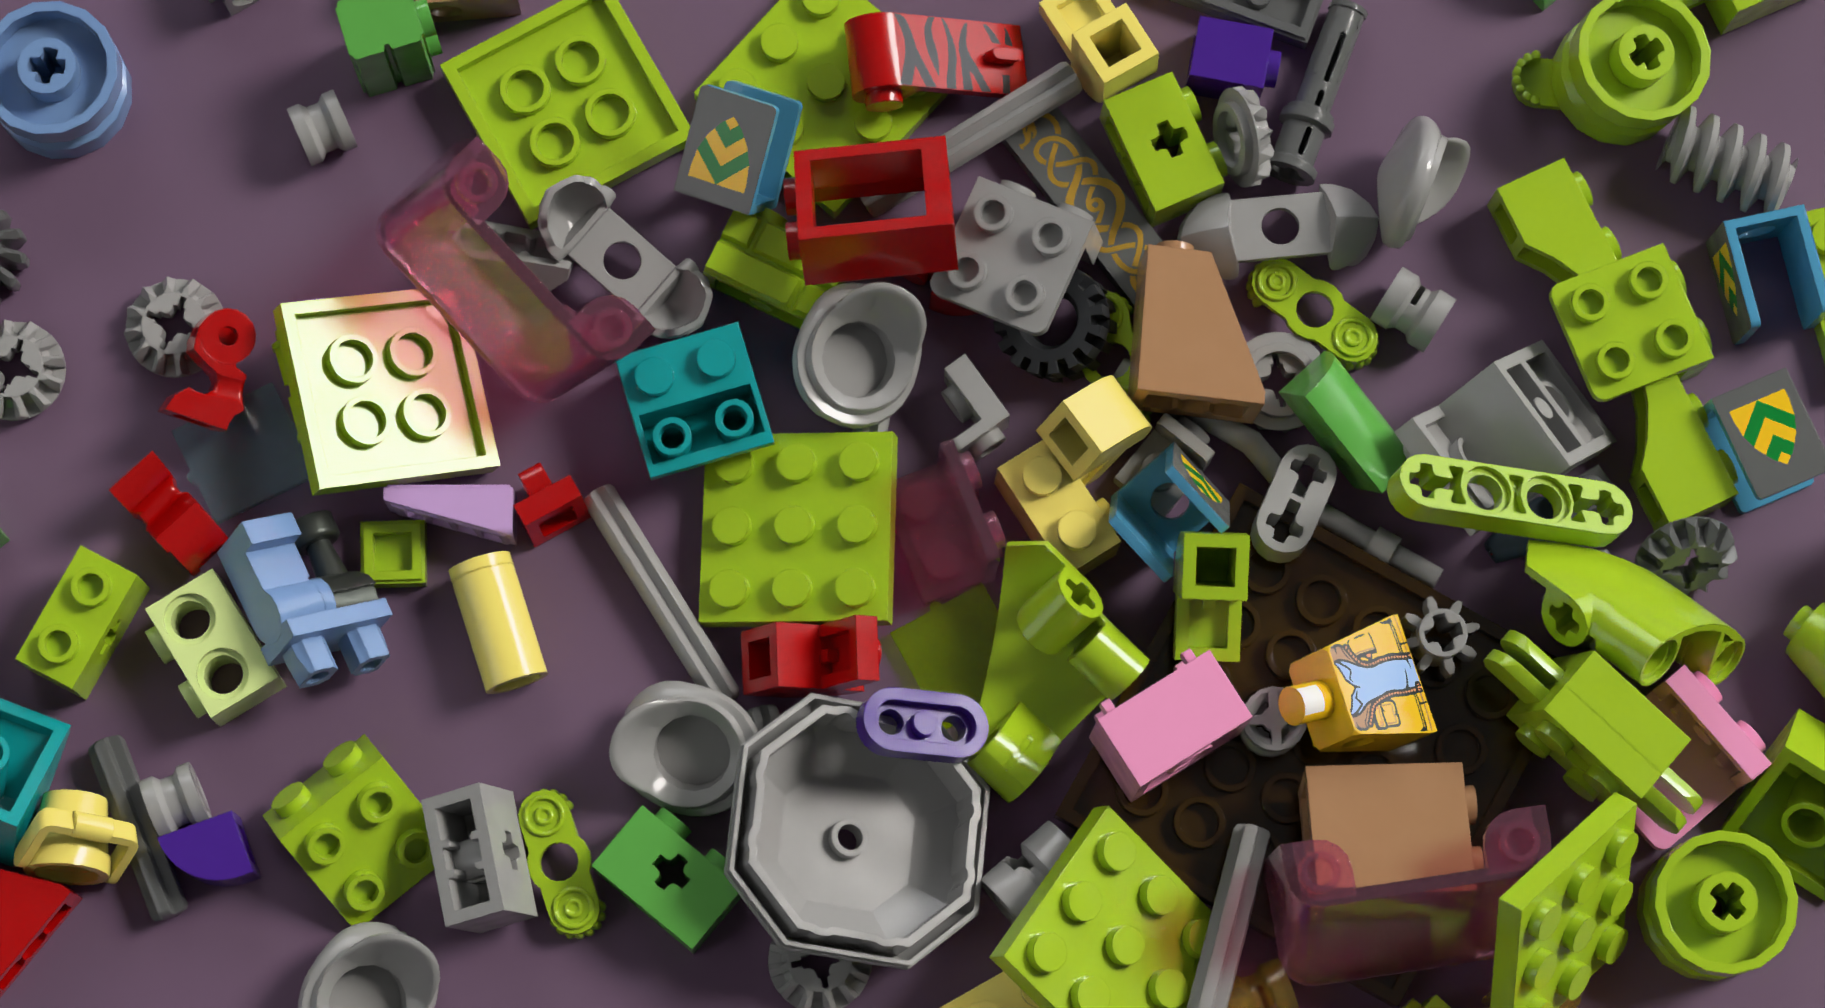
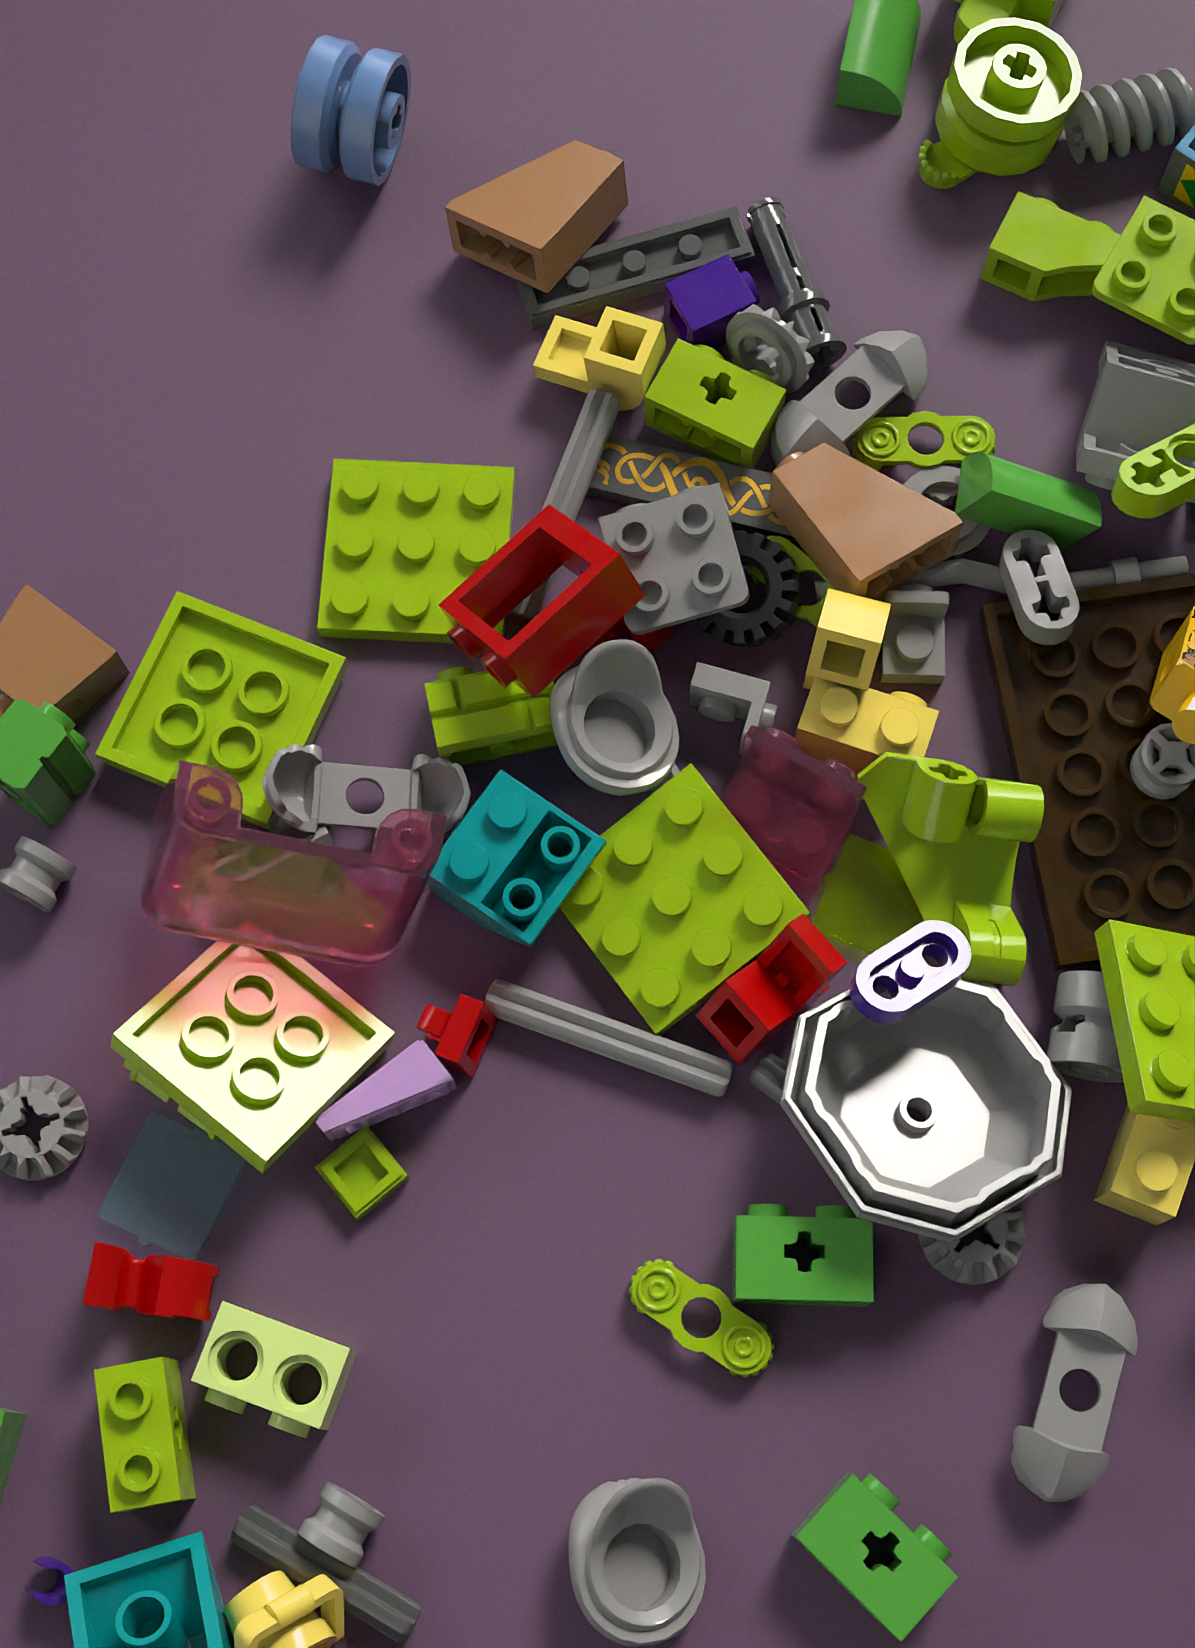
camera: 30 degrees left, 5 degrees down
(213, 851) = (407, 1542): dark purple brick -> none
(216, 347) = (84, 1116): red leg -> none
(302, 616) = (324, 1283): medium blue hips -> none
(354, 830) = (514, 1425): lime bracket -> none
(479, 858) = (637, 1367): light grey brick -> none
(497, 622) = (494, 1160): light yellow pin -> none
(681, 747) = (728, 1142): light grey piece -> none
(738, 147) = (389, 636): piece -> none
(911, 53) = (464, 471): red door -> none
(1157, 536) = (970, 639): dark azure piece -> none
(1169, 724) = (1104, 819): bright pink container -> none
(1209, 593) = (1035, 691): lime brick -> none
(1413, 309) = (998, 384): light grey wheel -> none
(1417, 178) = (921, 287): light grey piece -> none

